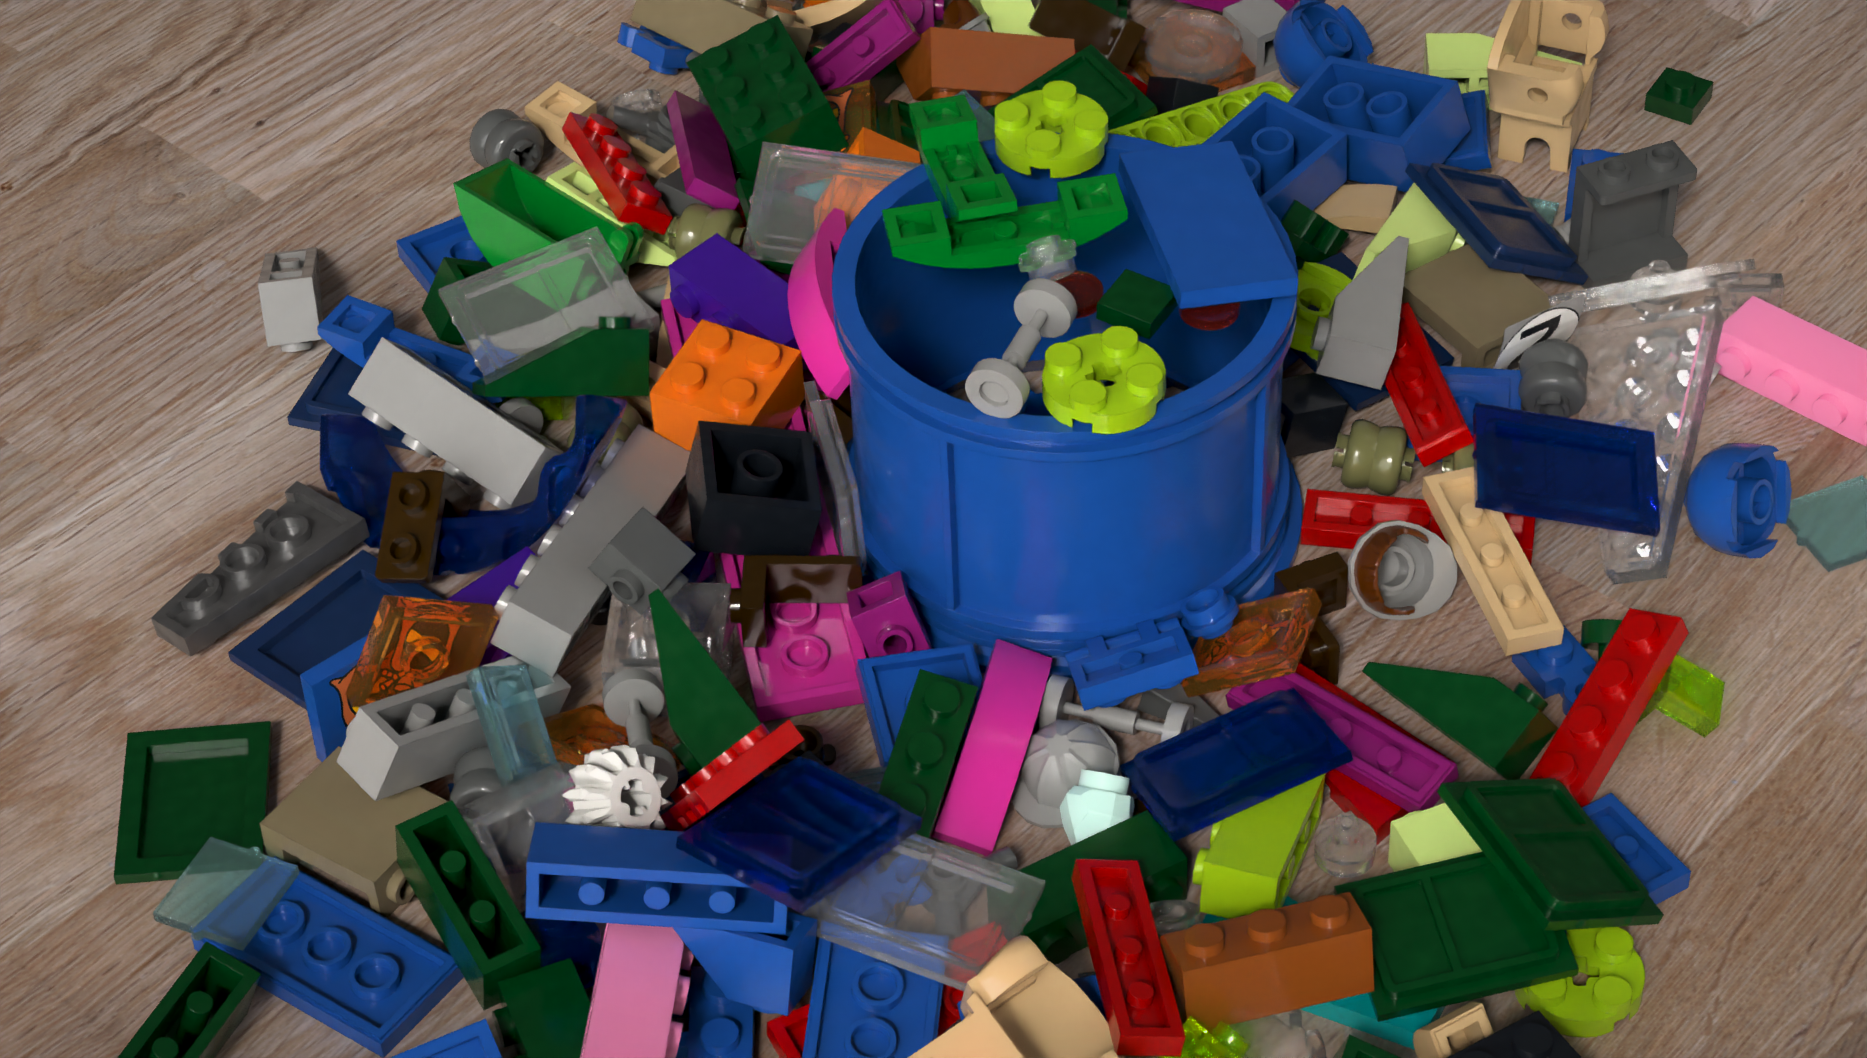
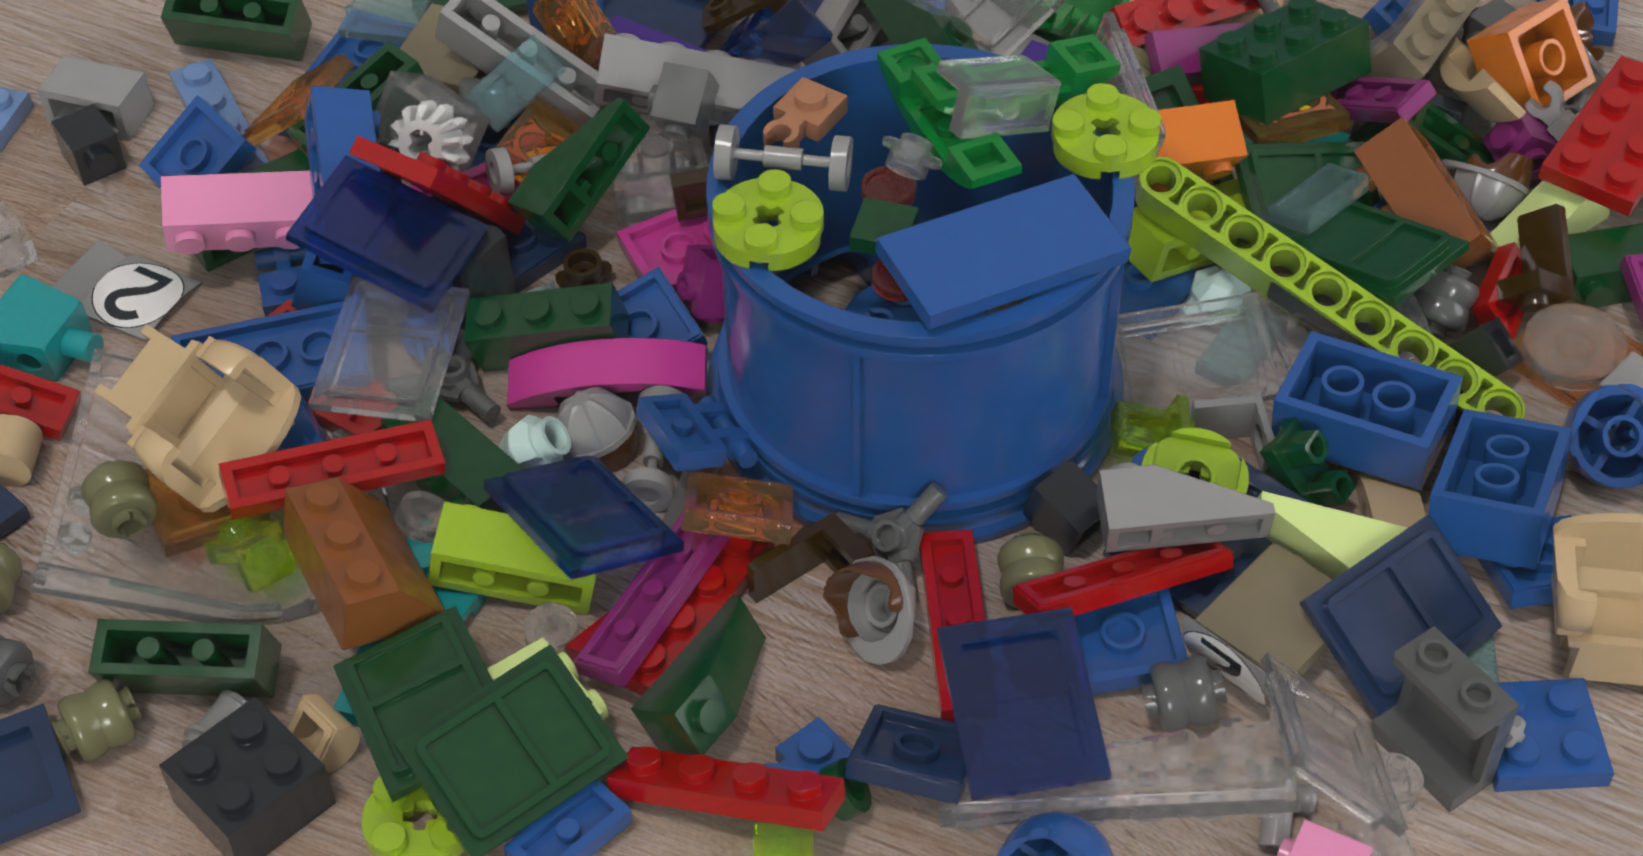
camera: 75 degrees right, 5 degrees up
(413, 965) = (292, 102): none -> clear orange tile
(937, 330) = (805, 112): none -> nougat plate
(1000, 157) = (1000, 95): none -> clear panel
(1208, 612) = (760, 470): blue plate -> none
(1303, 534) = (899, 532): none -> dark grey piece
(1493, 565) = (878, 676): tan plate -> none
(1592, 571) = (909, 755): none -> dark blue tile

